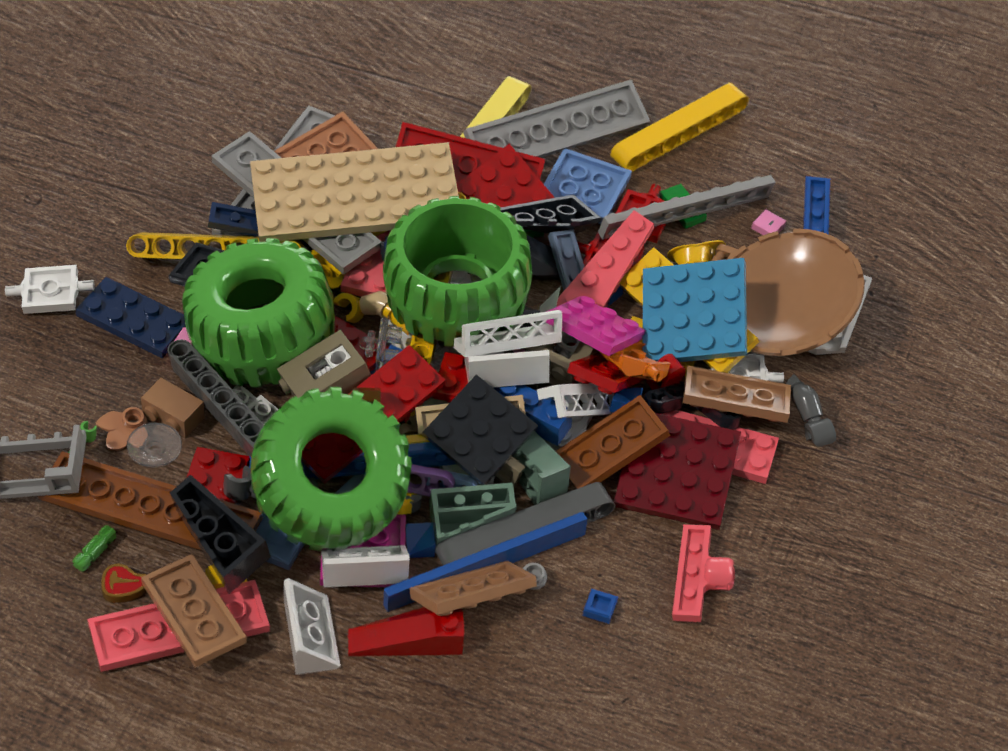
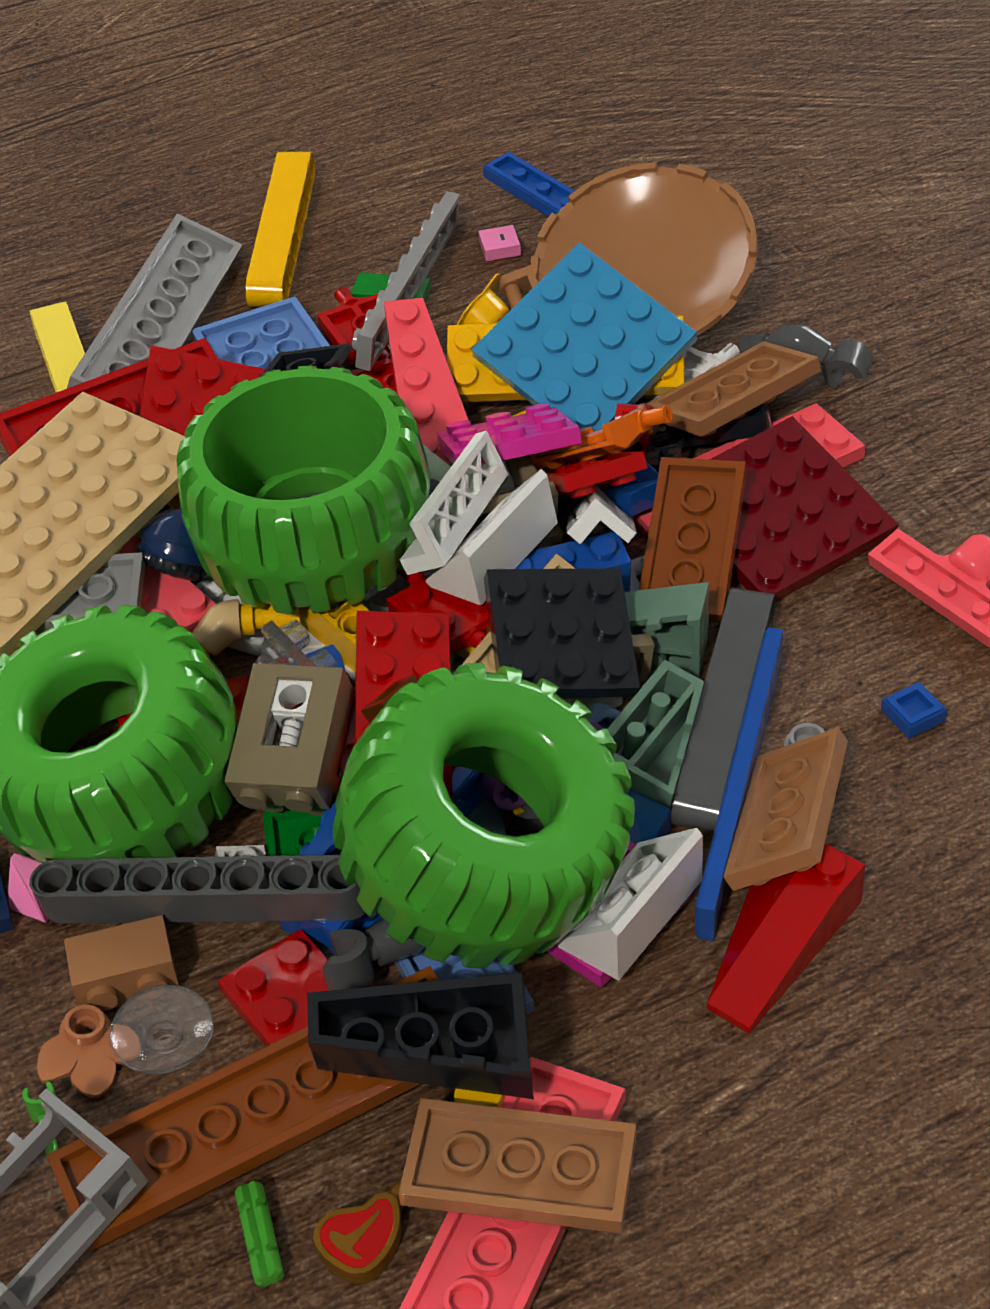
camera: 40 degrees left, 5 degrees down
(310, 629) = (668, 1051): white slope -> none

